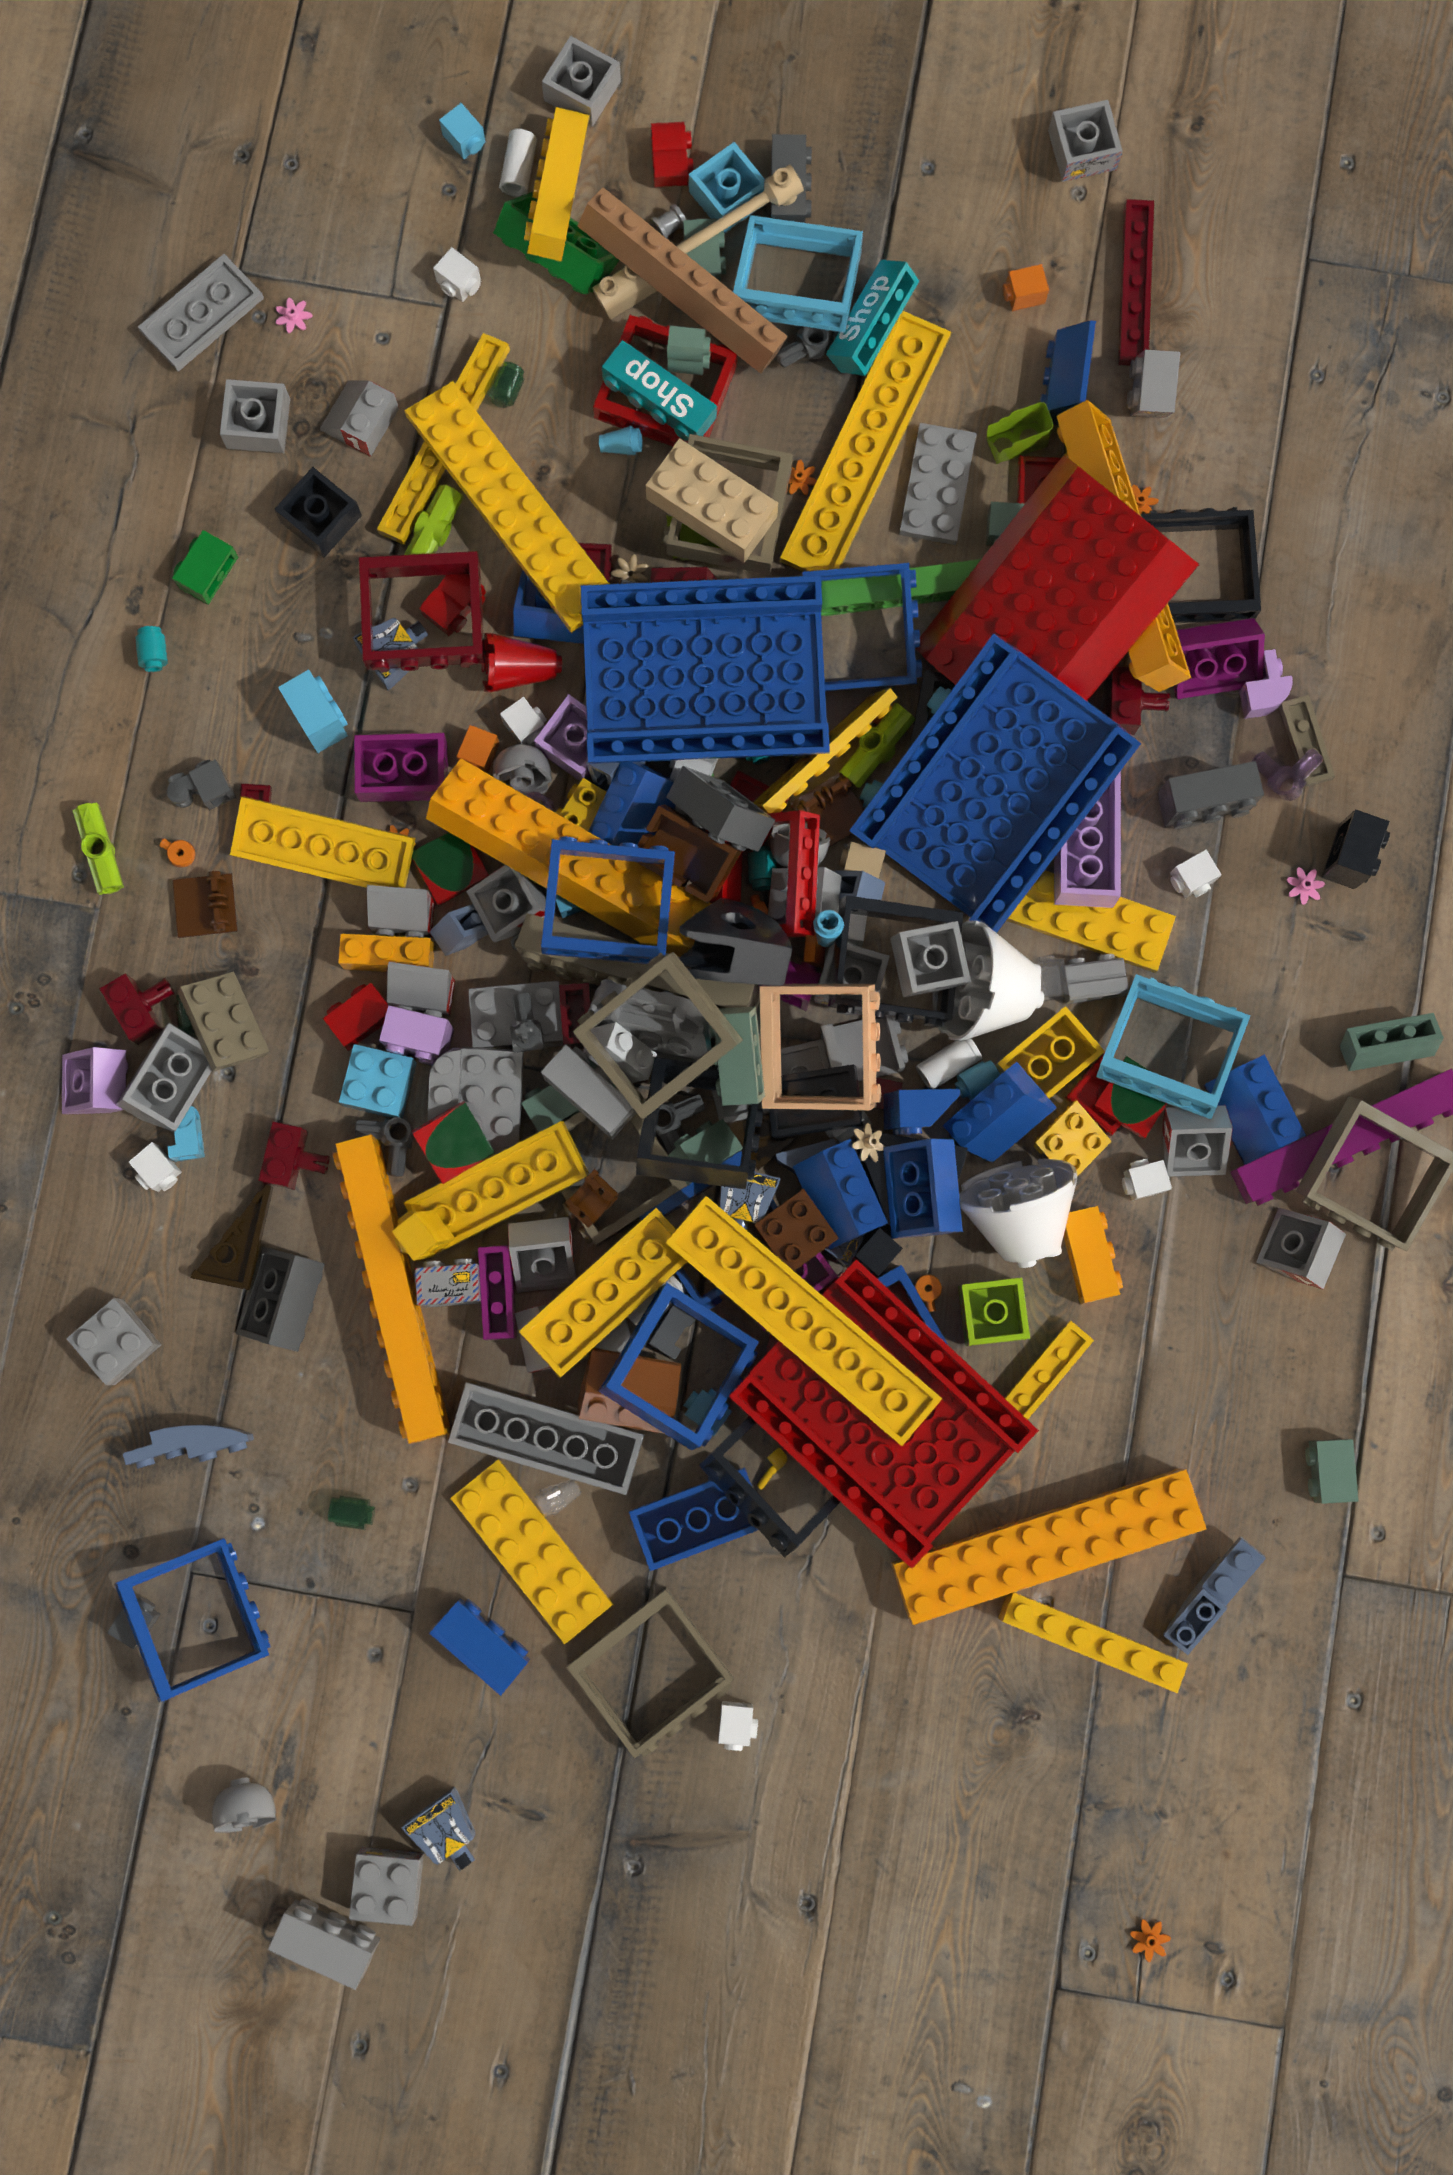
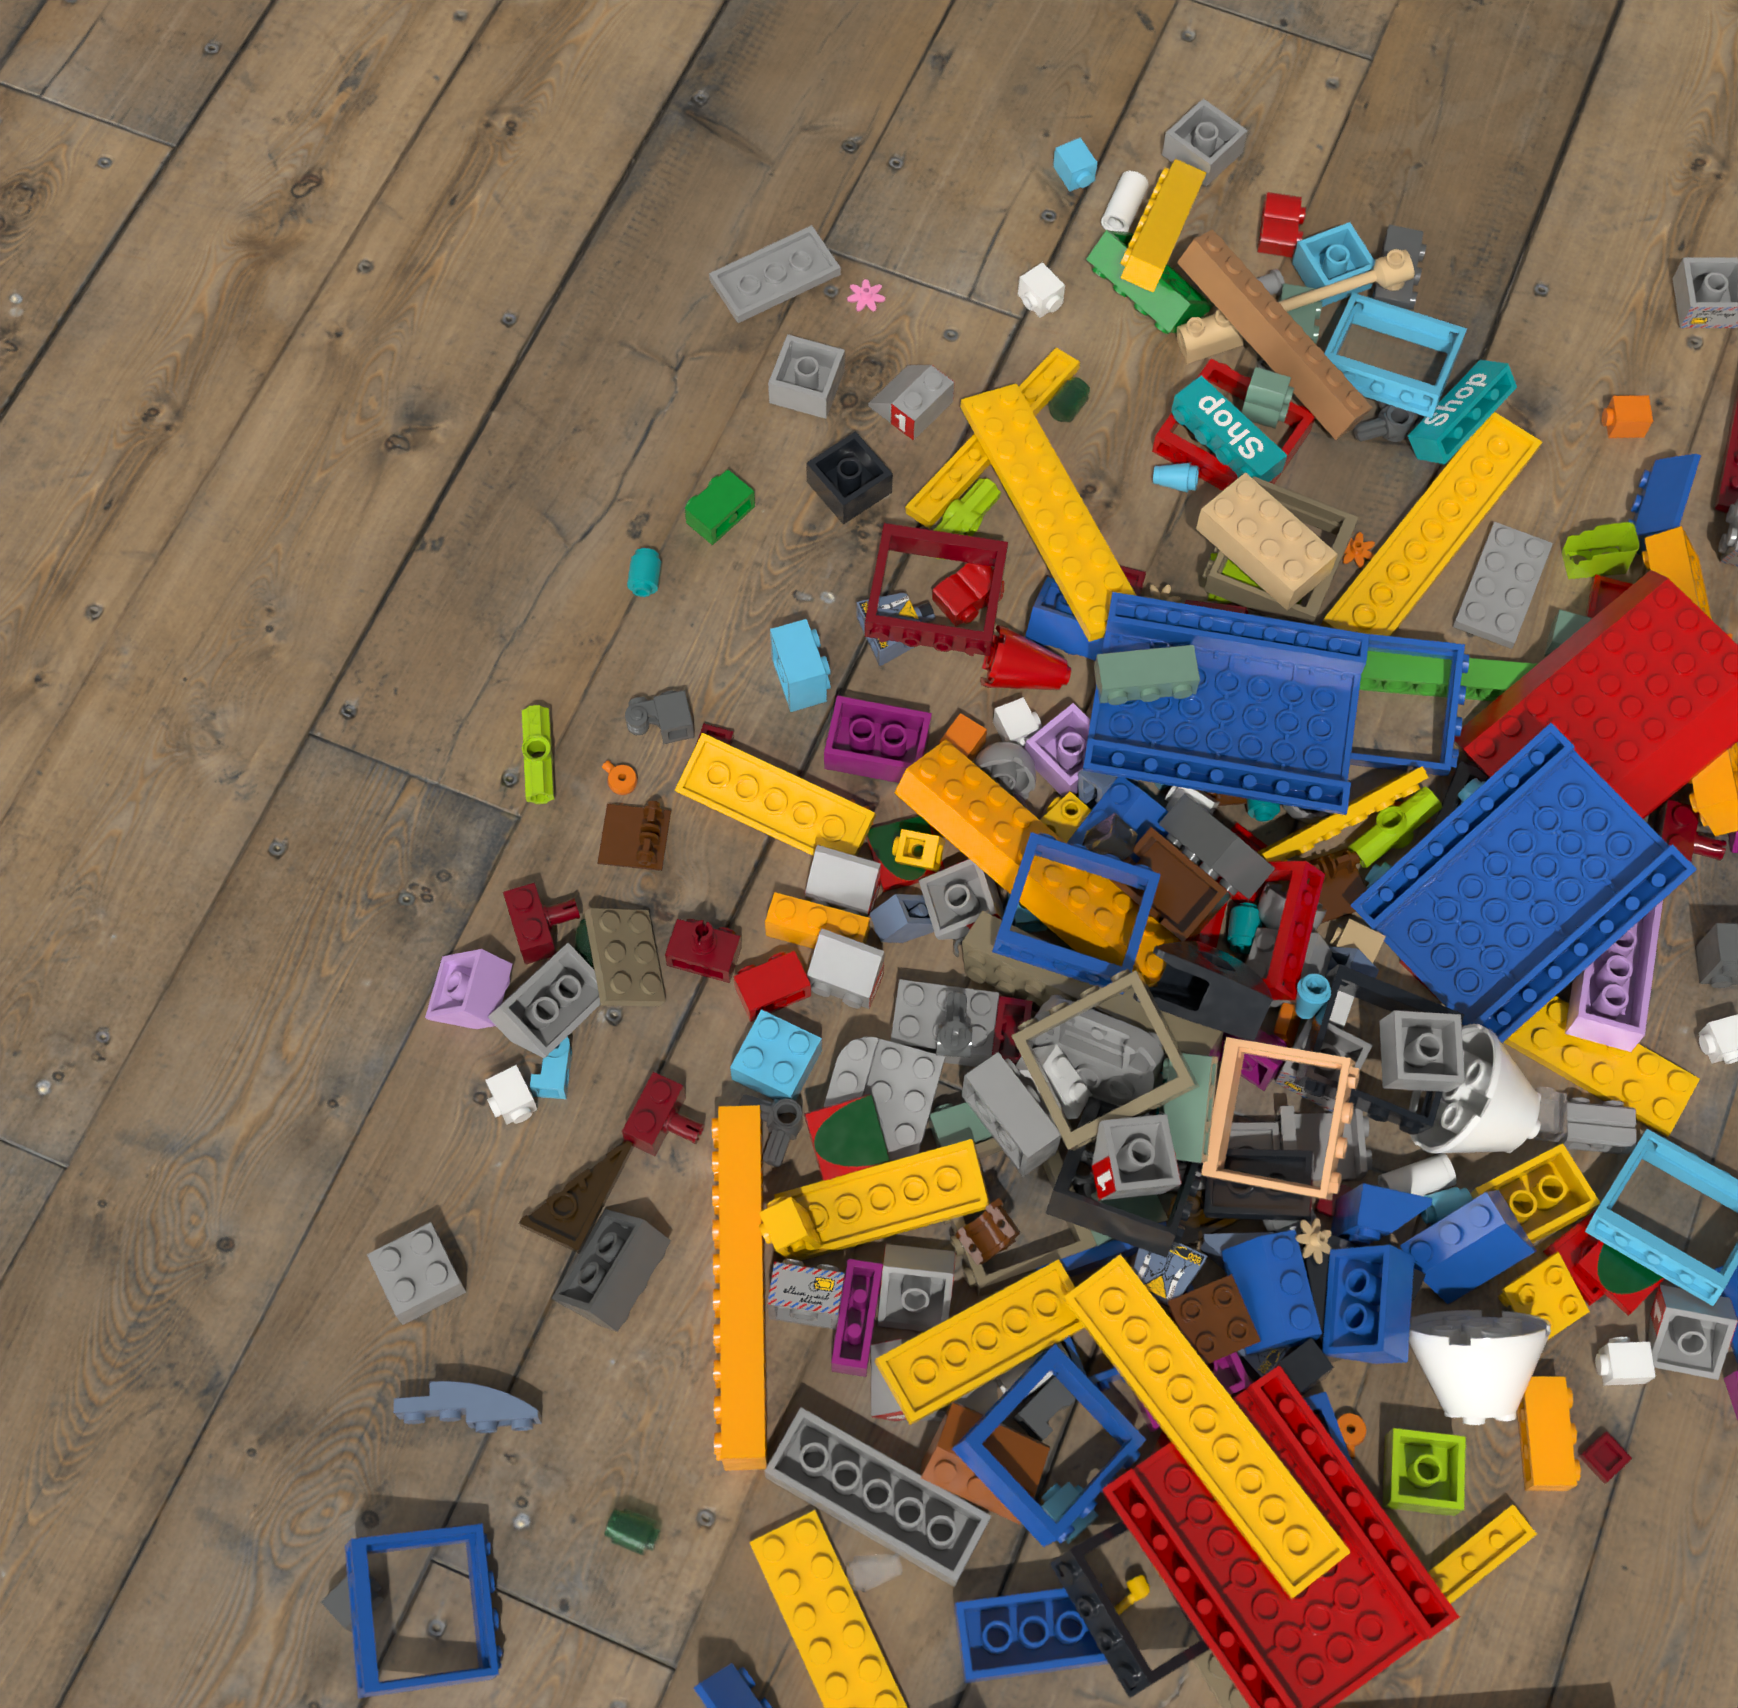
camera: 15 degrees right, 15 degrees down
(291, 997) = (703, 949): none -> dark red brick
(416, 1034) = (831, 1013): lavender brick -> none
(447, 864) = (905, 845): none -> yellow brick
(625, 824) = (1111, 837): none -> clear smoke brick
(628, 658) = (1146, 674): none -> sand green brick
(700, 1114) = (1134, 1158): none -> light grey slope
(1141, 1261) = (1605, 1457): none -> dark red tile

